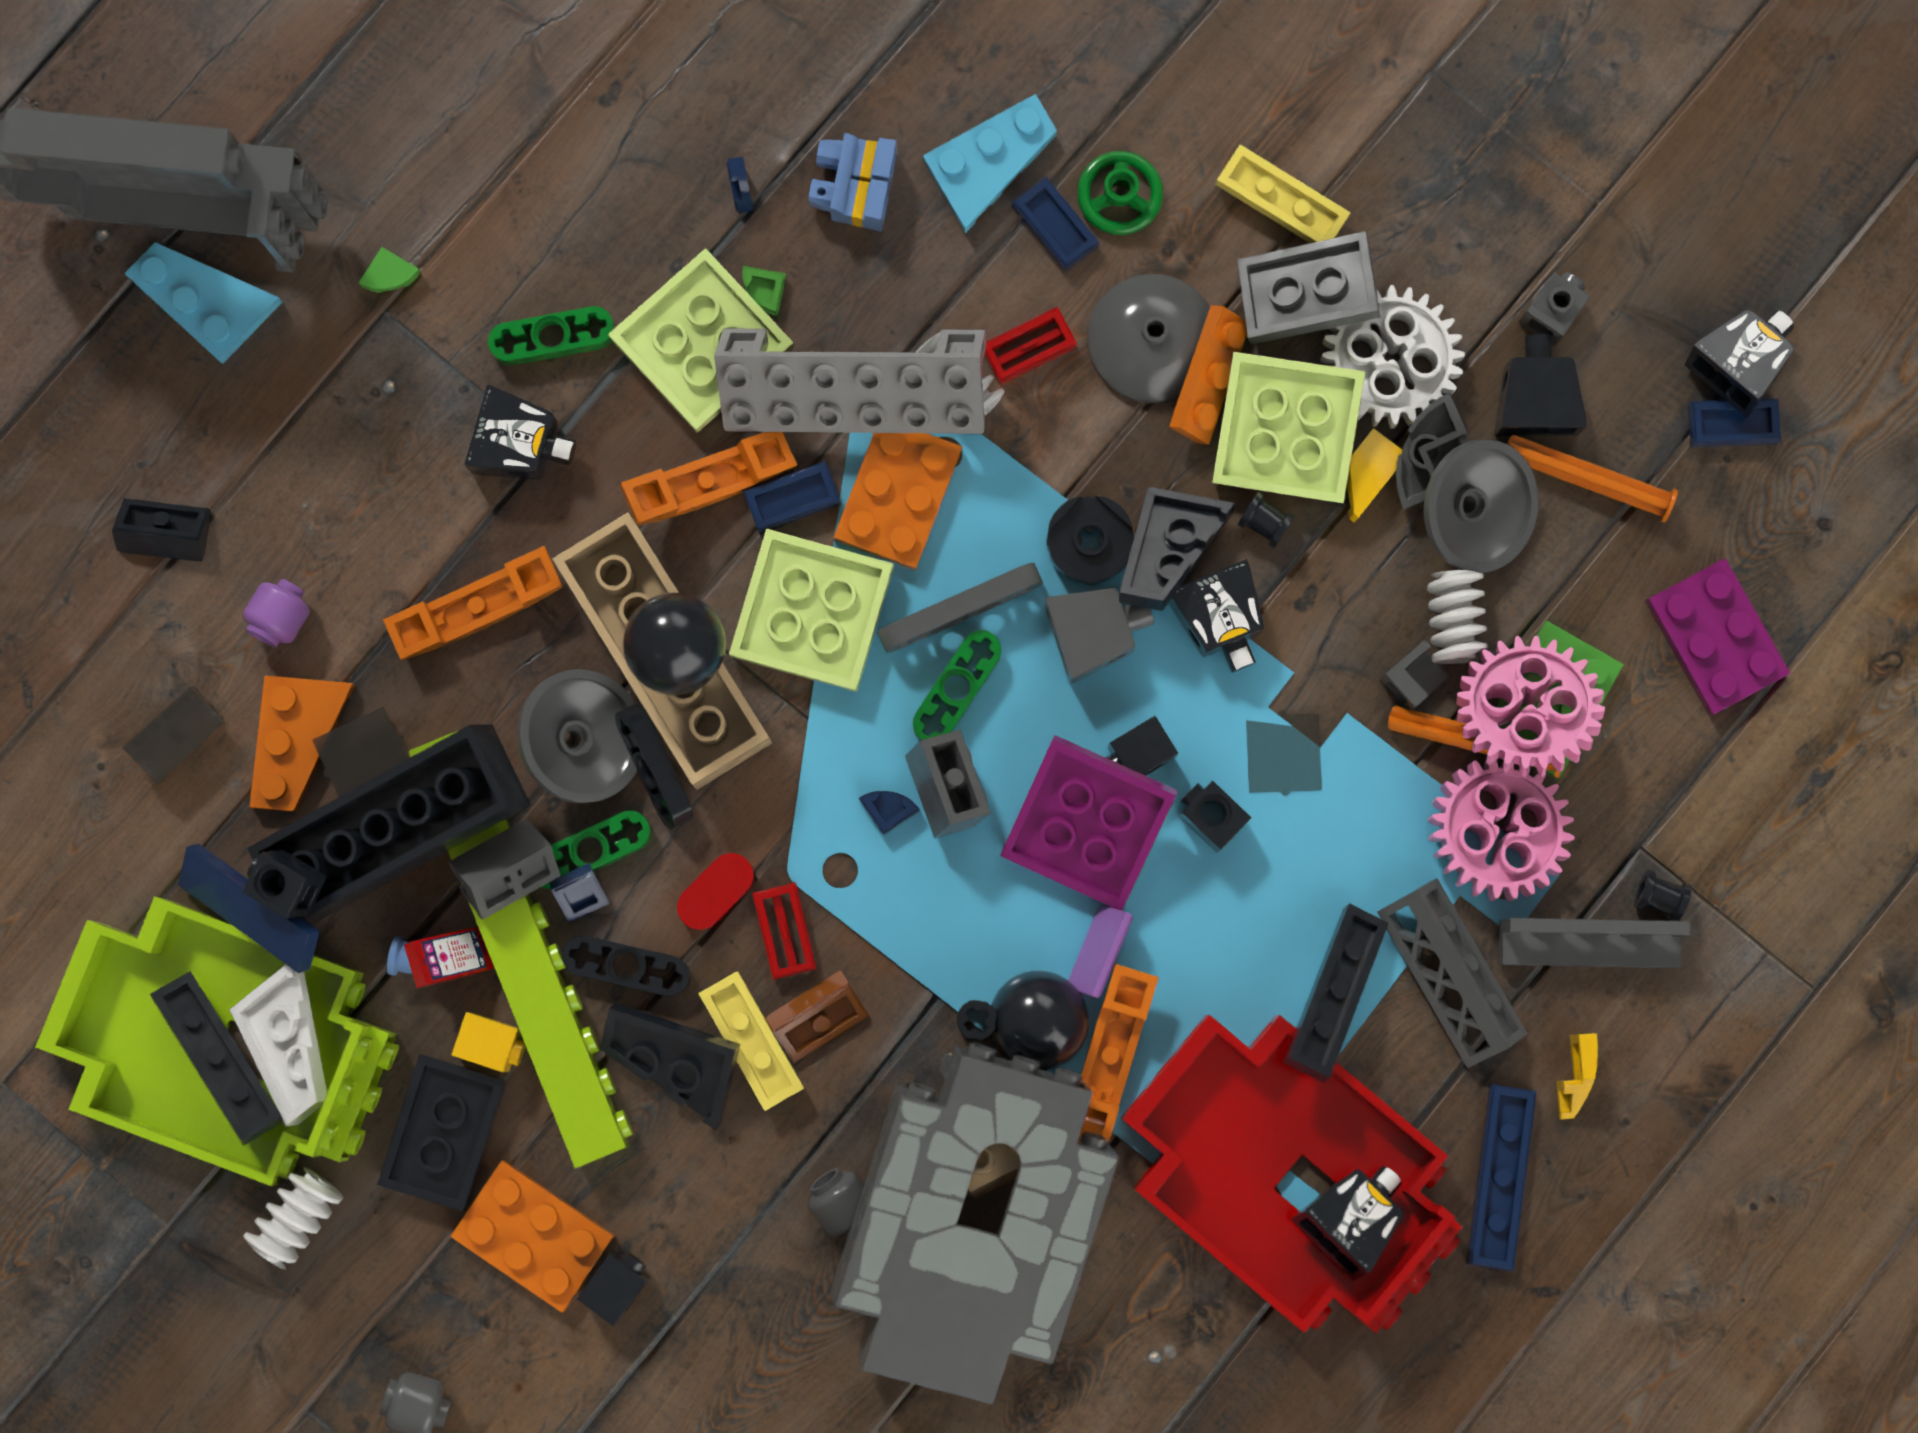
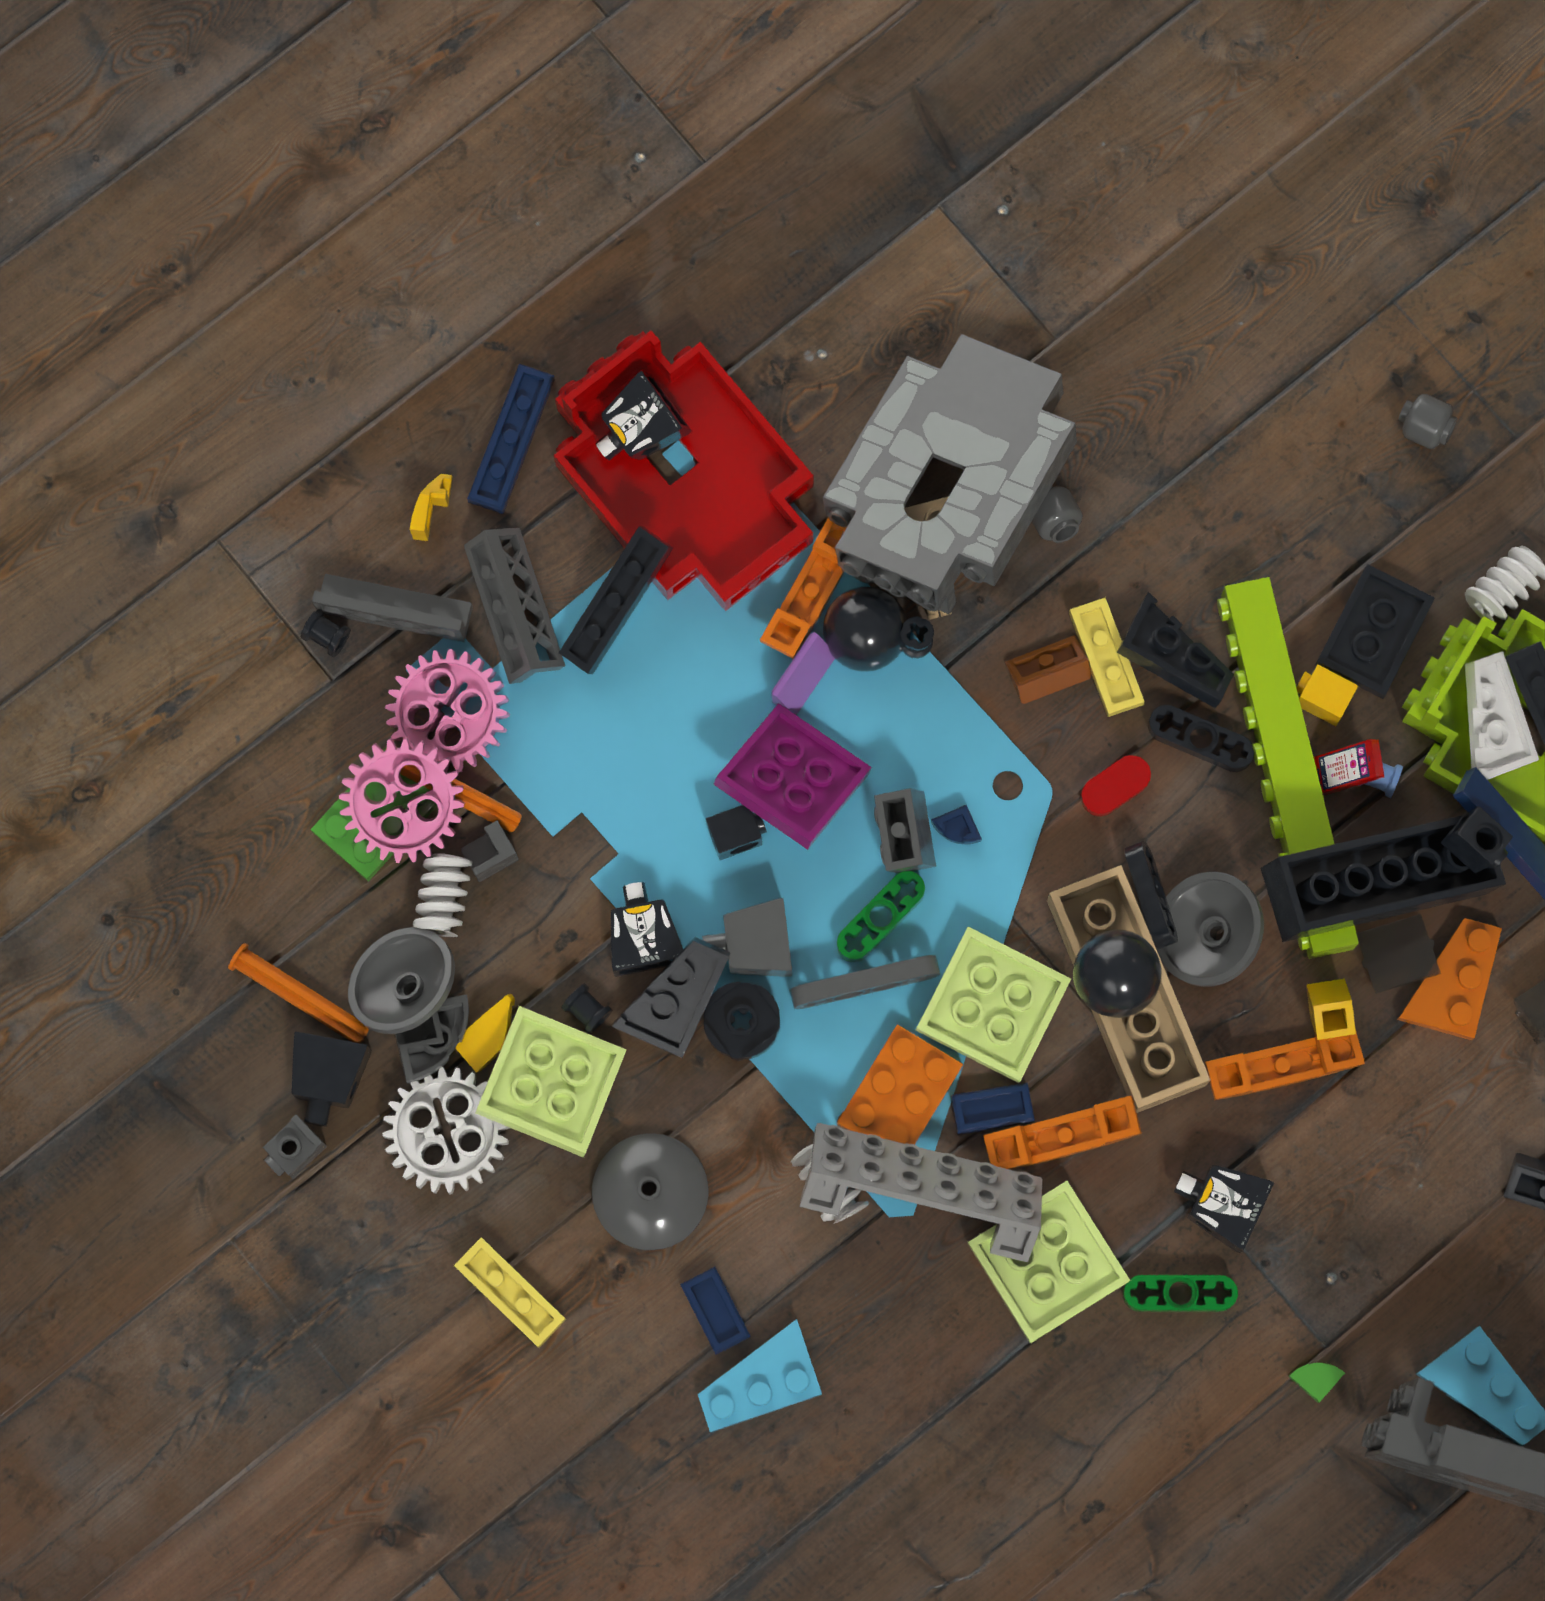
camera: 165 degrees left, 5 degrees down
(276, 613) = (1457, 1087): medium lavender head -> none
(429, 672) = (1331, 1009): none -> yellow brick
(505, 868) = (1290, 825): dark grey hinge -> none
(532, 1236) = (1312, 537): orange plate -> none
(579, 892) = (1231, 803): dark blue tile -> none
(615, 1286) = (1251, 483): black brick -> none
(616, 826) = (1246, 841): green beam -> none
(739, 184) = (990, 1397): dark blue tile -> none
(765, 288) = (984, 1301): bright green tile -> none
(776, 893) = (1064, 774): red tile -> none
(861, 180) = (891, 1364): medium blue hips -> none
(1036, 361) = (764, 1219): red tile -> none
(1120, 177) = (645, 1357): green piece -> none
(1208, 375) = (608, 1144): orange plate -> none
(1233, 815) = (685, 750): black brick -> none
(1283, 755) = (613, 810): clear smoke piece -> none
(1308, 288) = (506, 1200): plate -> none
(1717, 637) = (224, 839): magenta plate -> none
(1723, 425) = (162, 1020): dark blue tile -> none
(1743, 357) = (141, 1068): black torso -> none

